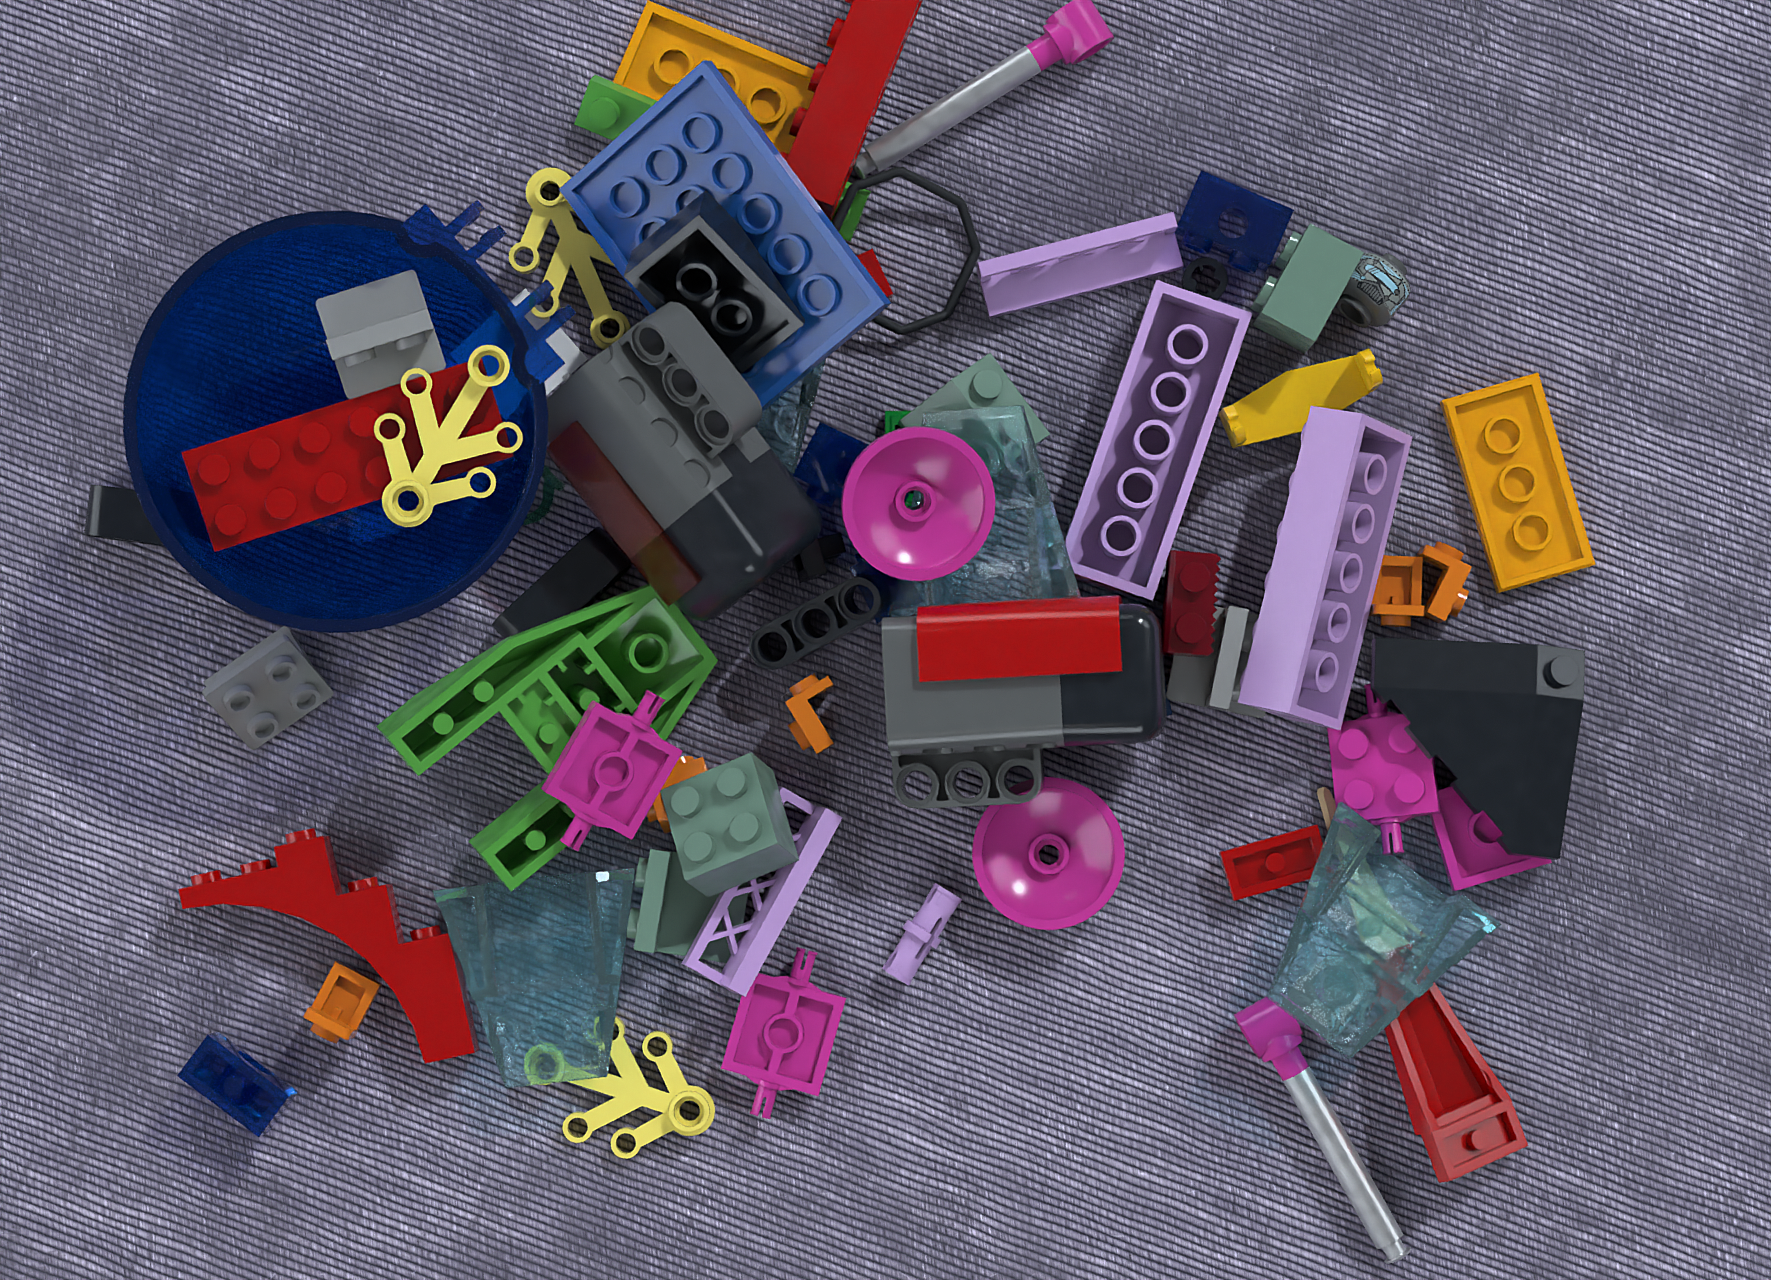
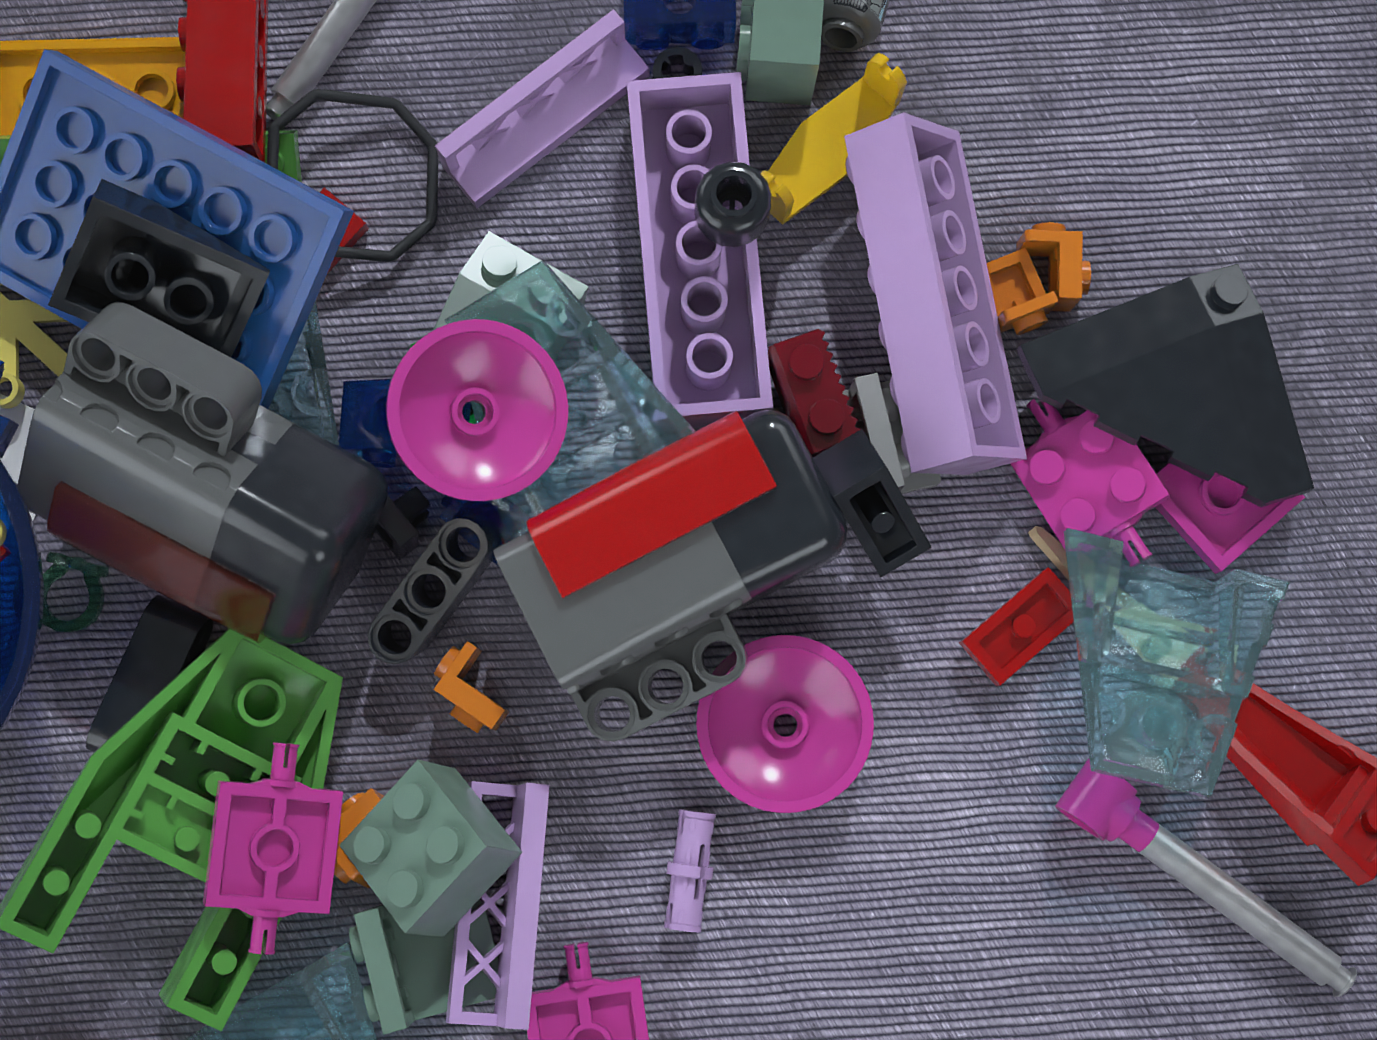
camera: 30 degrees left, 5 degrees down
(1193, 712) = (872, 503): none -> black slope
(1202, 411) = (732, 186): none -> black head
(1517, 483) = (1082, 137): light orange tile -> none

